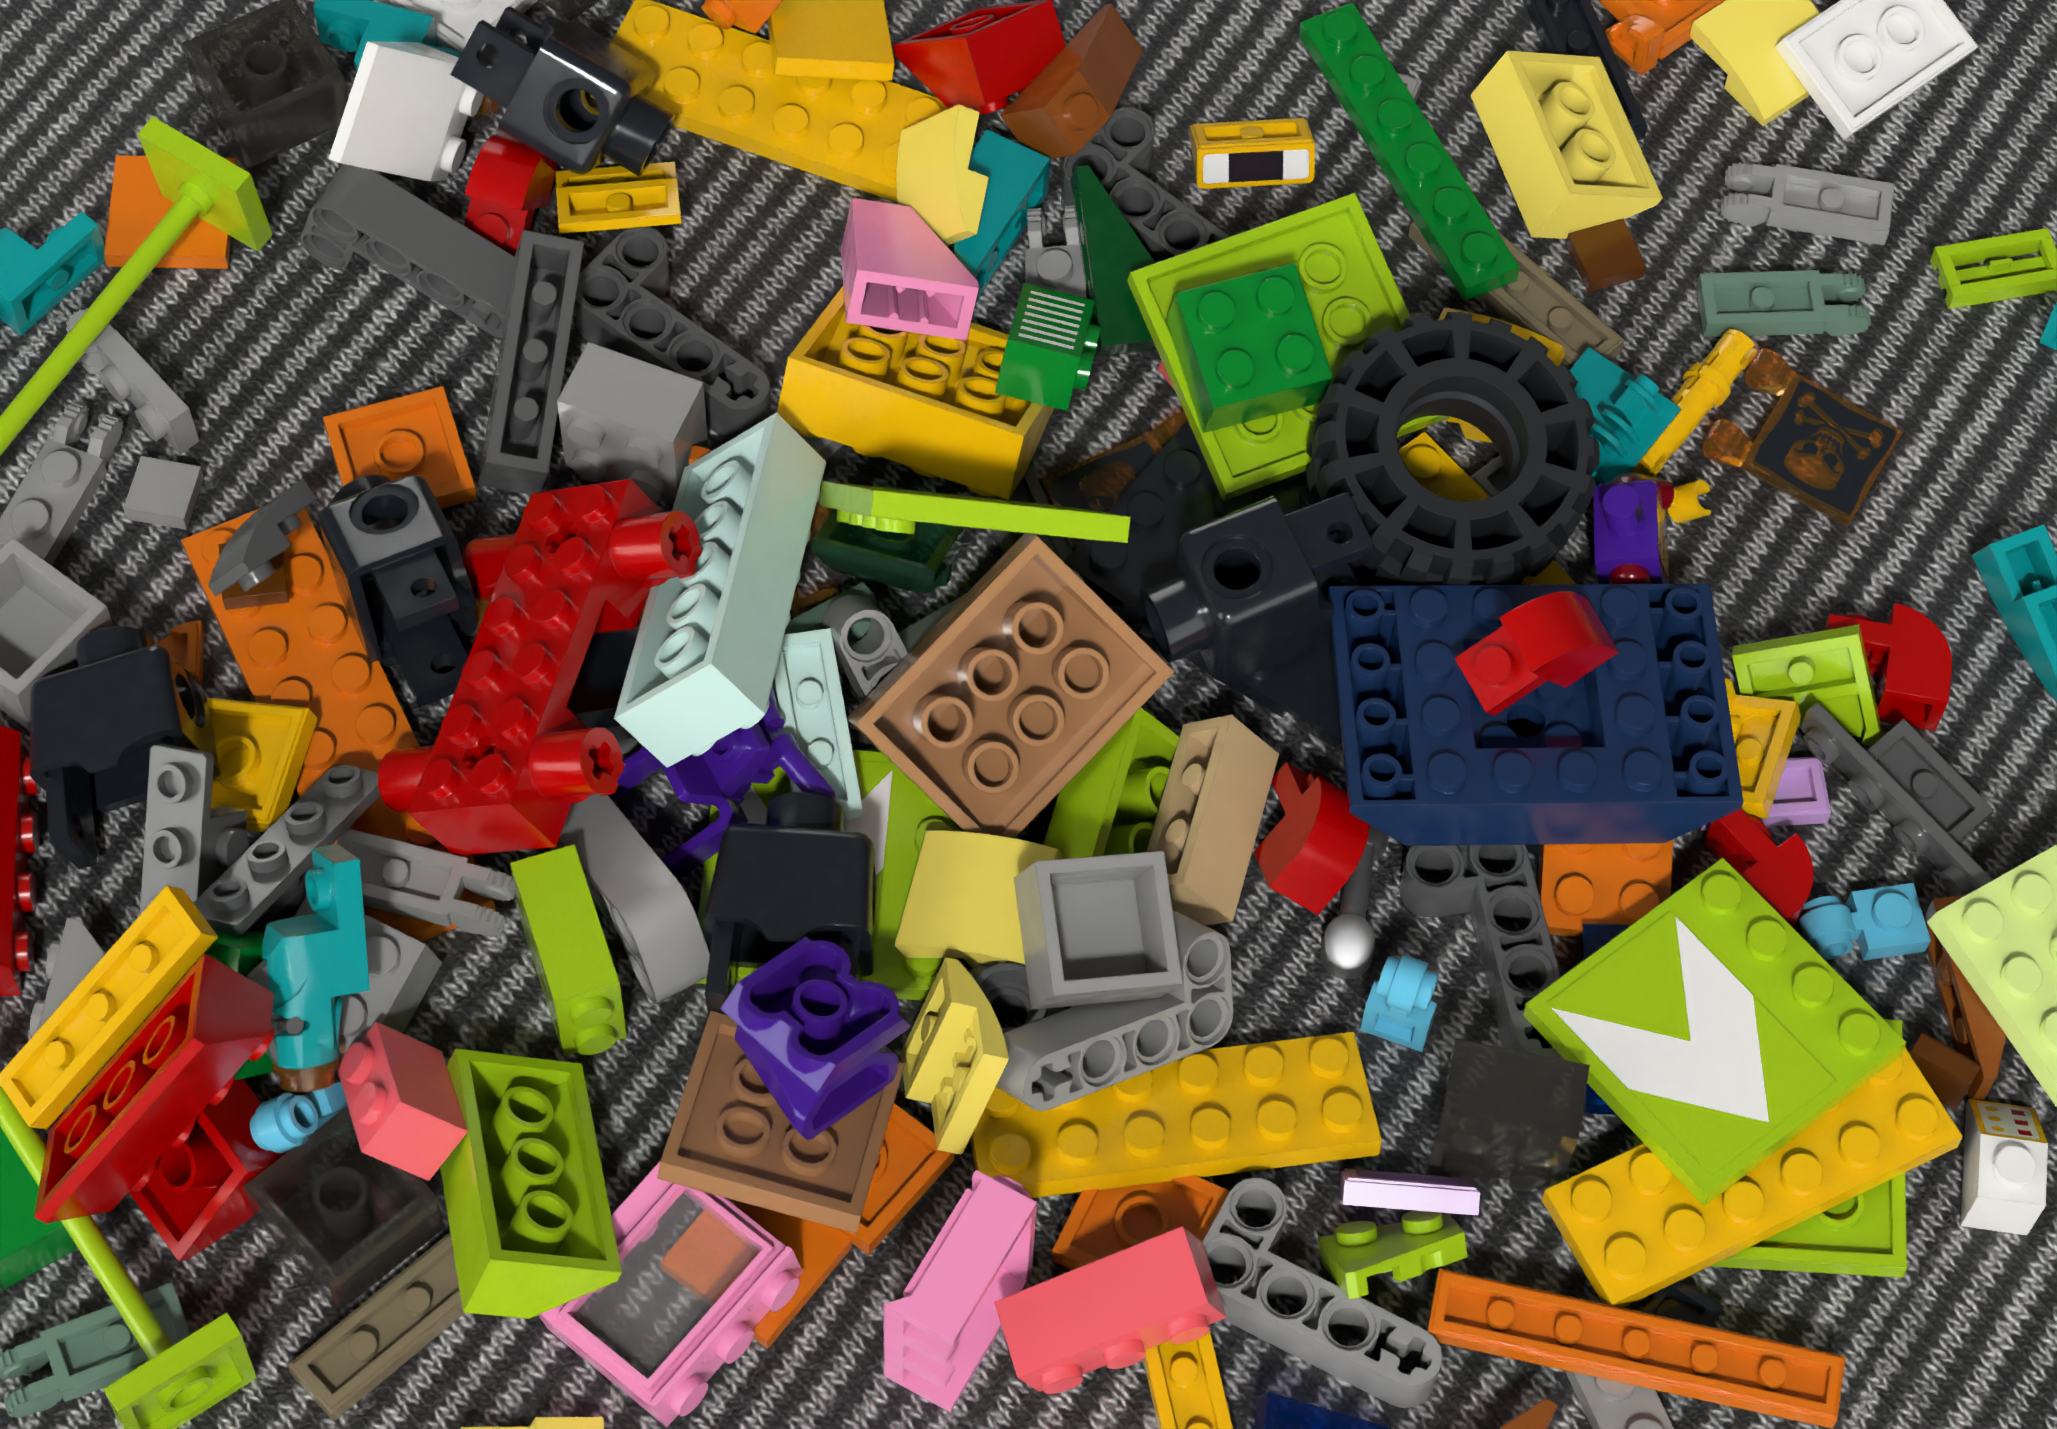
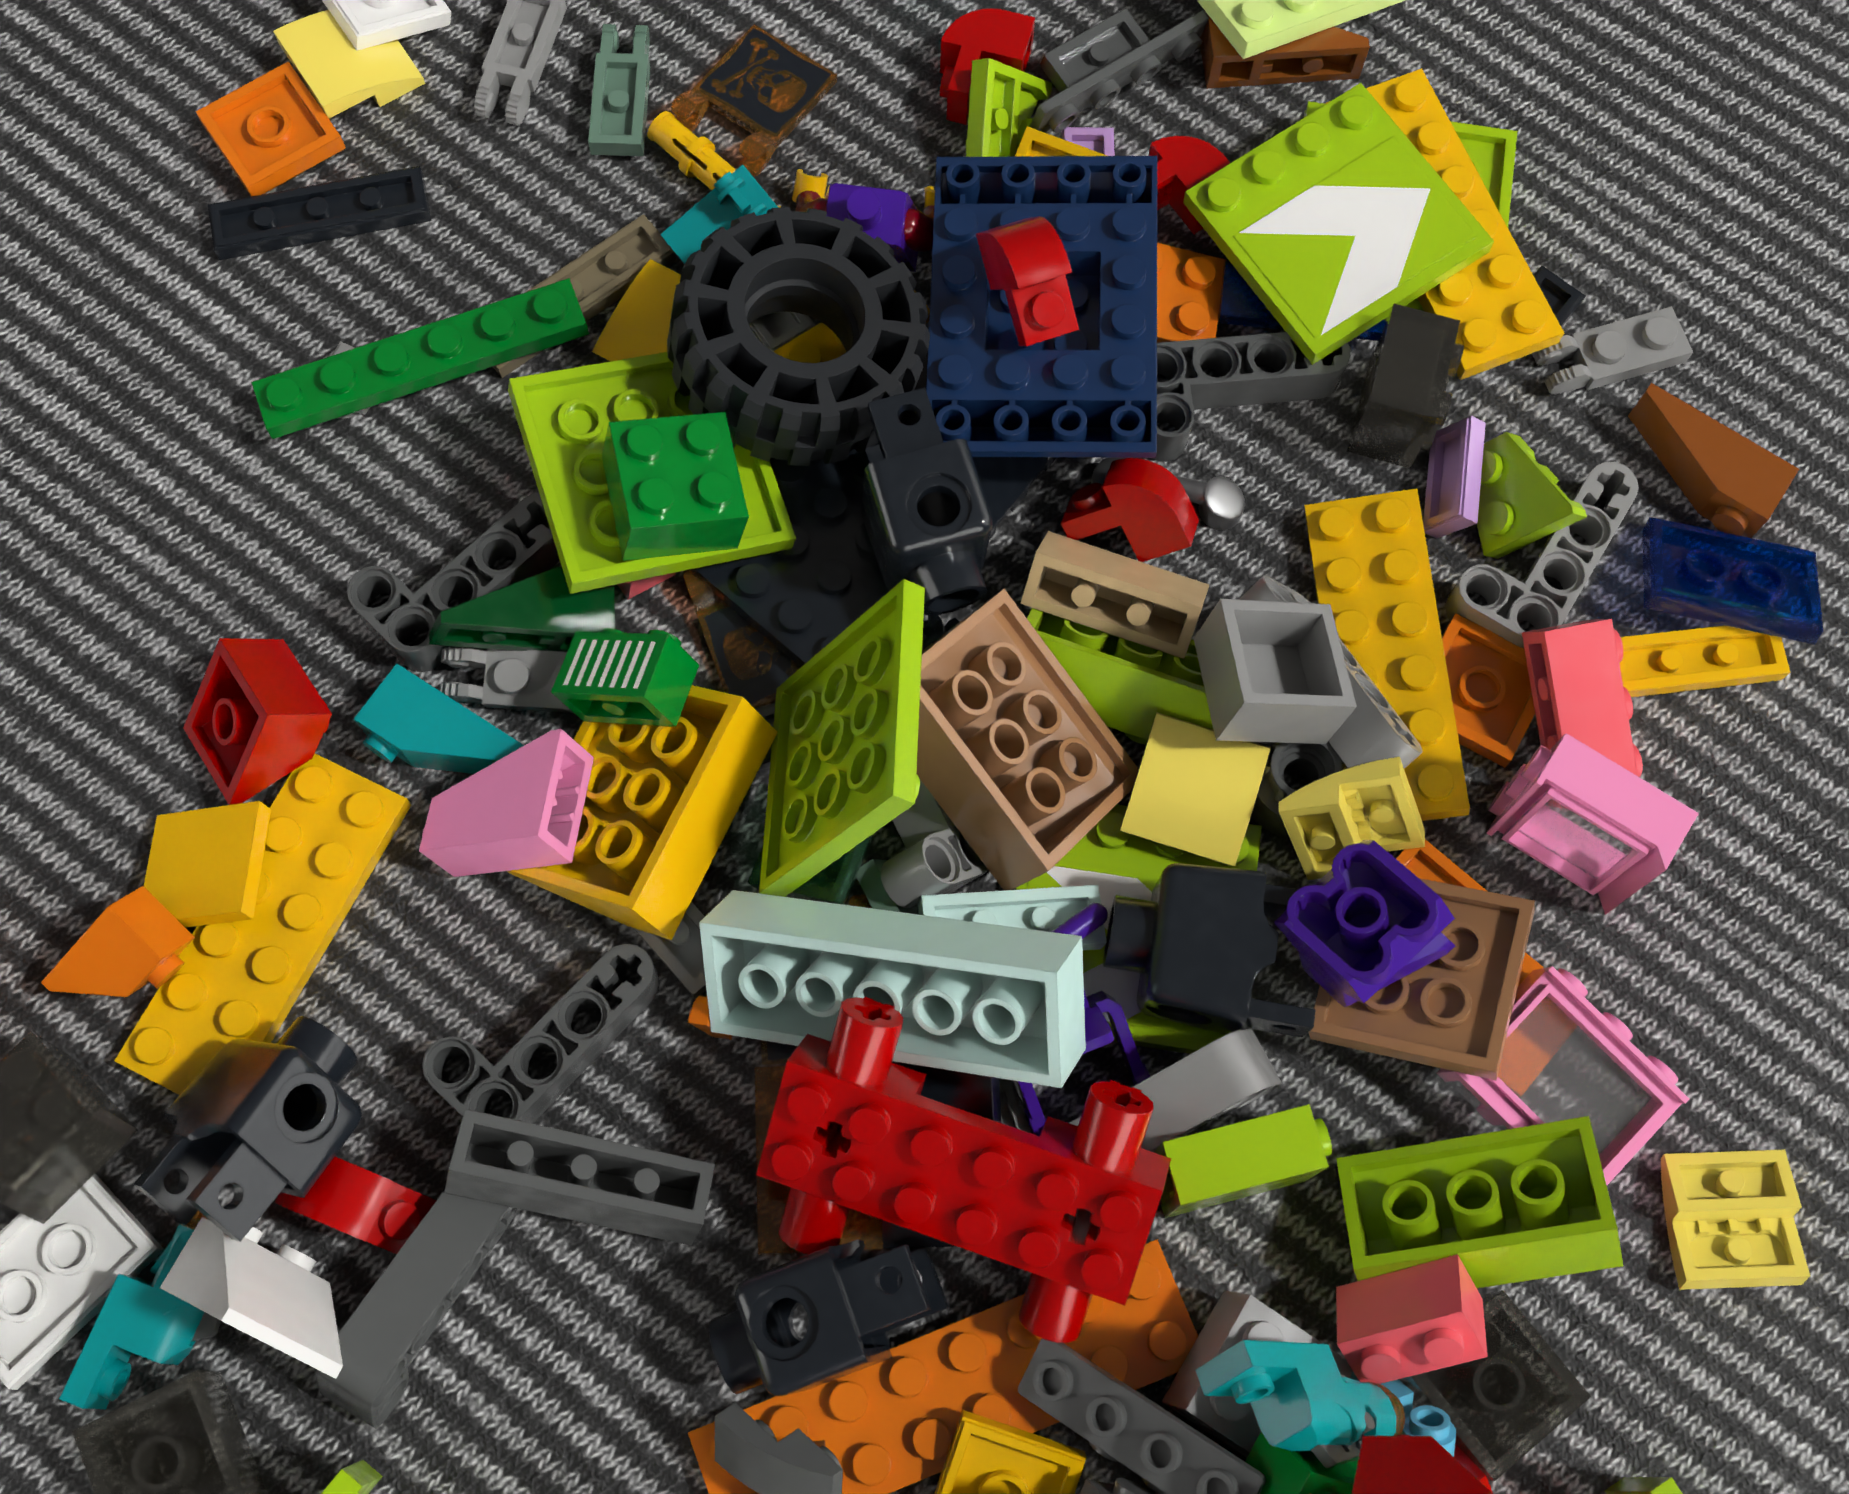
camera: 85 degrees left, 10 degrees up
(382, 1332) = (1619, 1389): dark tan tile -> none
(403, 439) = (652, 1323): orange plate -> none
(427, 883) = (1158, 1313): light grey hinge -> none
(617, 198) = (390, 1084): yellow slope -> none
(630, 421) = (661, 1078): light grey piece -> none
(936, 174) = (410, 761): light yellow slope -> none
(1076, 88) = (323, 635): dark orange slope -> none
(1252, 153) = (394, 495): yellow slope -> none
(1401, 1003) = (1296, 446): medium azure plate -> none
(1563, 142) = (437, 229): light yellow slope -> none
(1605, 255) = (549, 219): reddish brown tile -> none
(1636, 42) = (325, 160): orange tile -> none
(1636, 1348) = (1593, 328): orange tile -> none
(1880, 919) = (1211, 112): medium azure plate -> none
(1944, 1069) = (1352, 73): reddish brown tile -> none
(2003, 1167) = (1435, 41): white slope -> none

